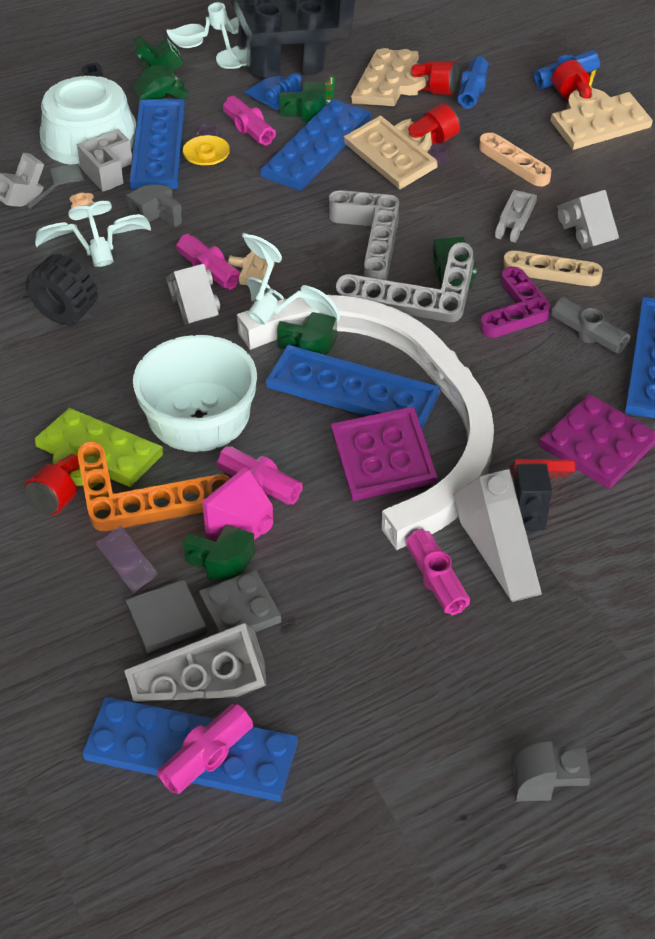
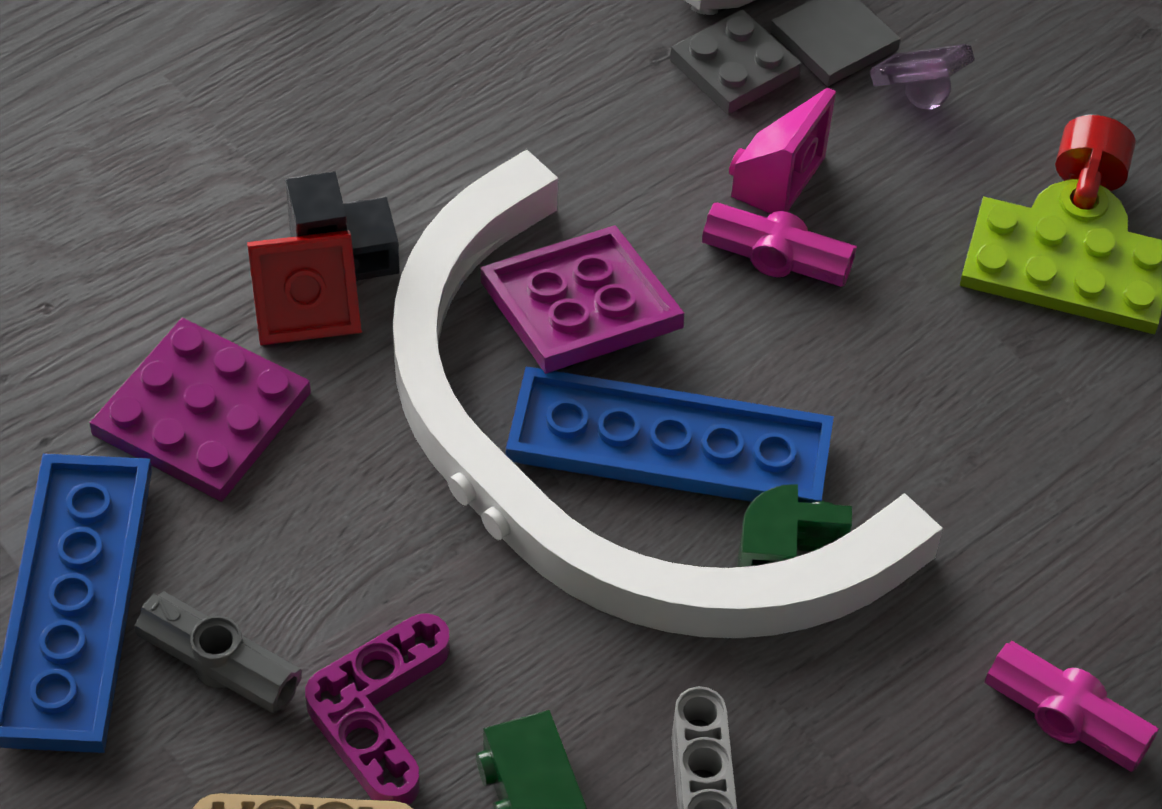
camera: 165 degrees right, 5 degrees up
(144, 498) = (940, 158): orange beam -> none
(193, 293) = (1066, 576): brick -> none
(194, 376) = (942, 280): light aqua piece -> none
(222, 558) = (782, 94): dark green brick -> none
(252, 266) = (964, 714): tan plate -> none
(267, 298) = (909, 482): light aqua plant -> none
(415, 293) = (615, 650): light grey beam -> none
(437, 572) = (452, 122): dark pink piece -> none
(495, 525) = (369, 168): light grey wedge -> none

